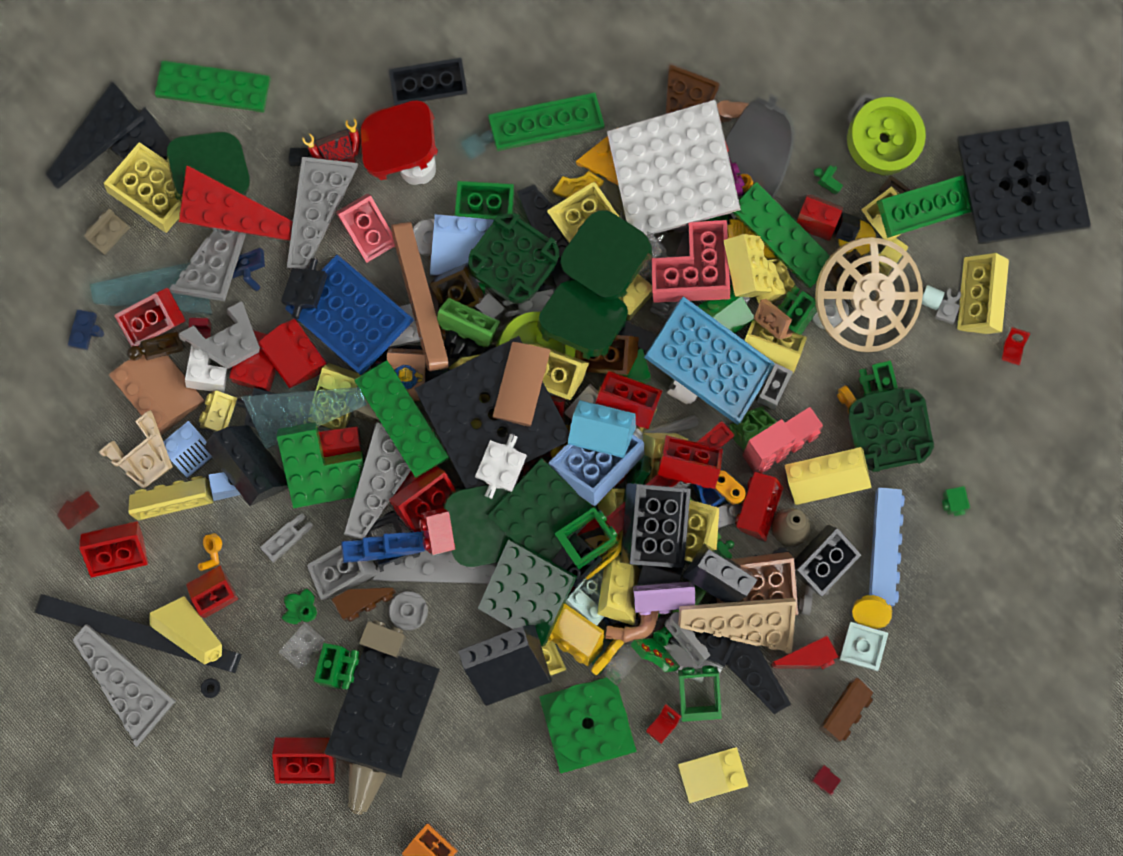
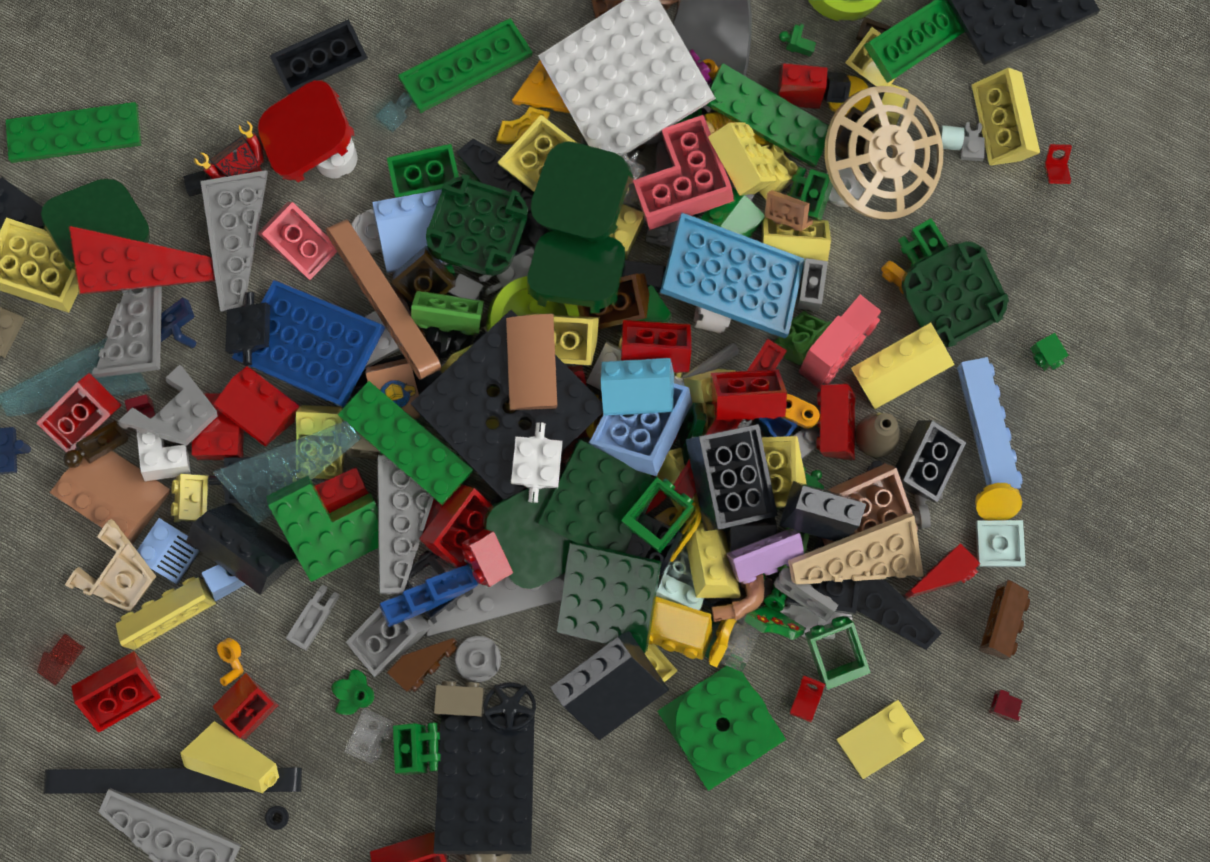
camera: 20 degrees left, 0 degrees up
(421, 656) = (509, 705): none -> black wheel

